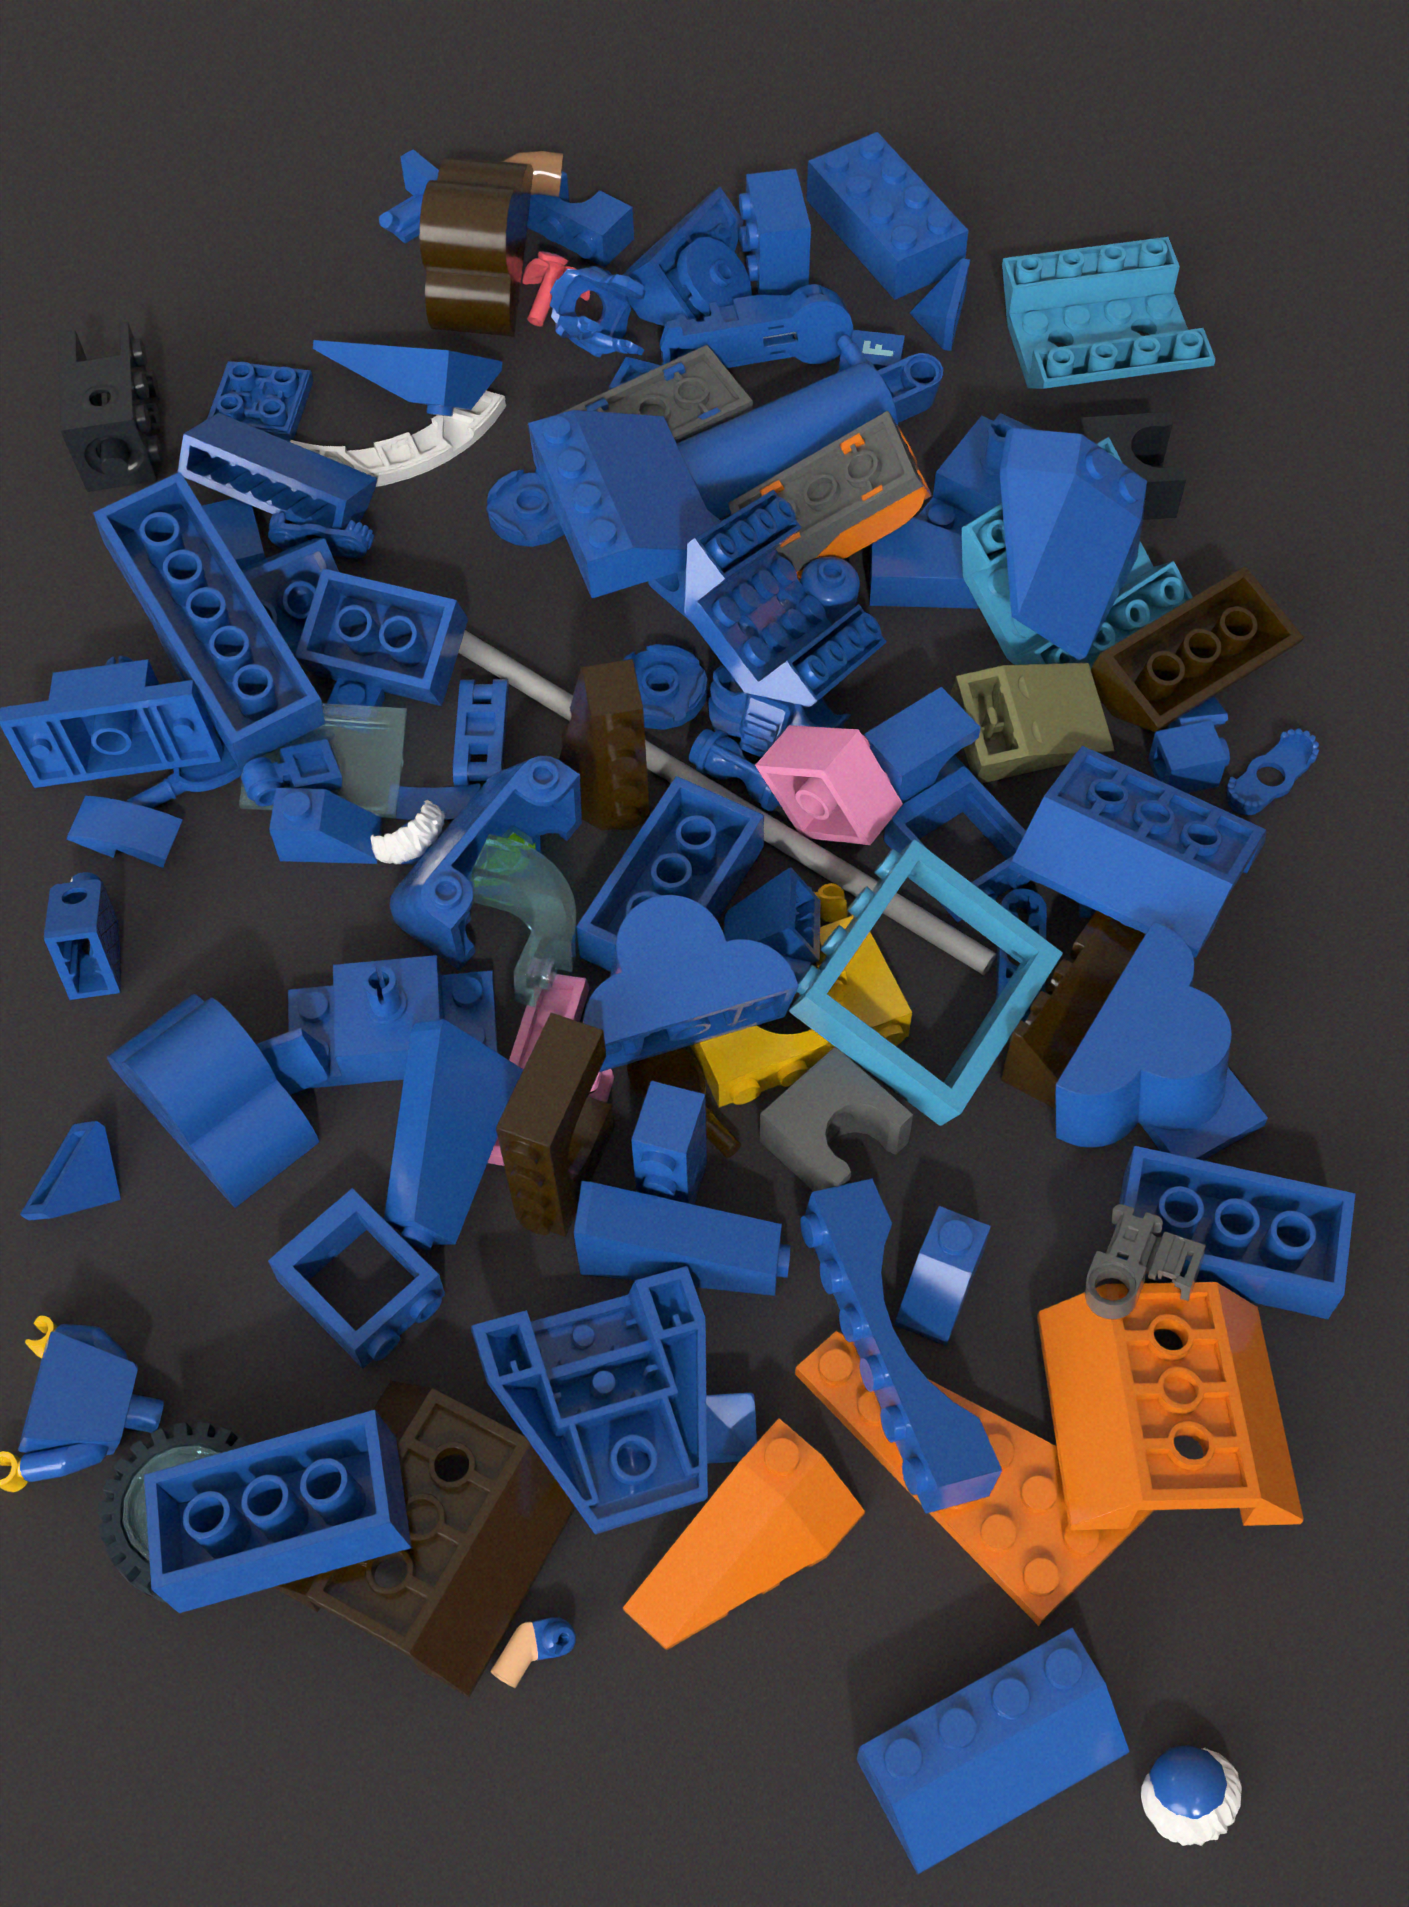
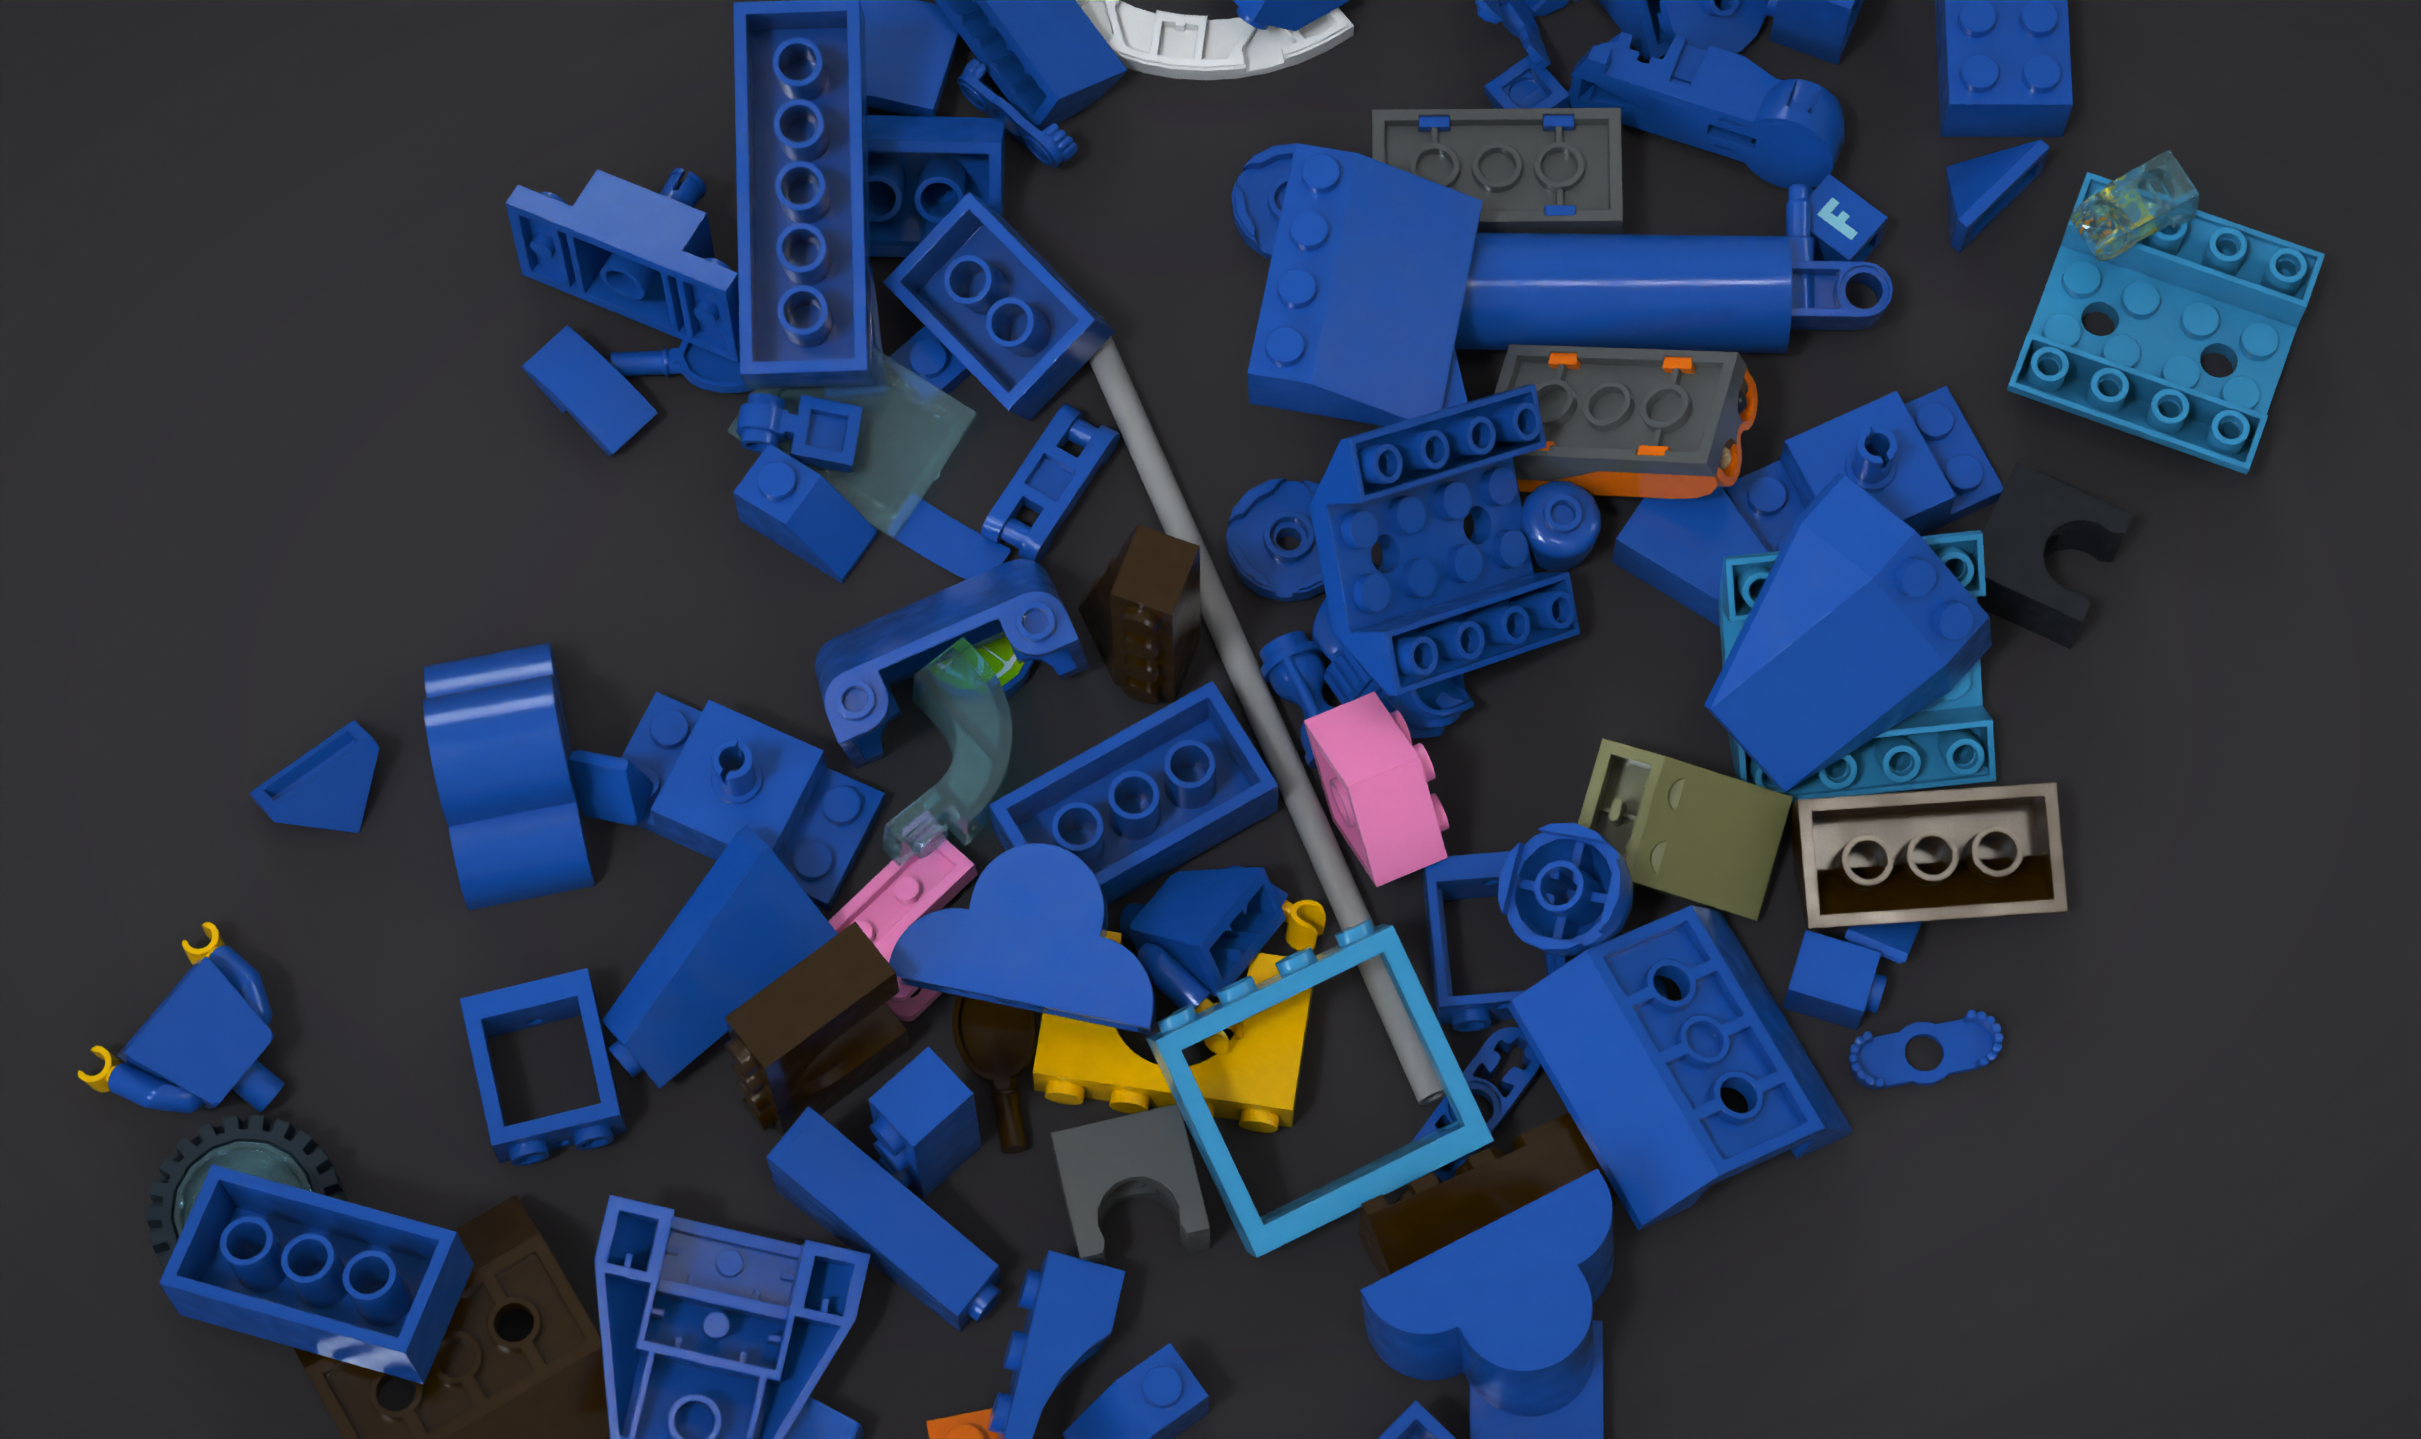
camera: 30 degrees right, 10 degrees up
(80, 913) = (474, 505): blue torso -> none
(412, 839) = (887, 581): white hair -> none
(921, 743) = (1505, 797): blue piece -> none
(1002, 770) = (1565, 890): none -> blue cylinder
(1052, 250) = (2136, 207): none -> clear light blue leg

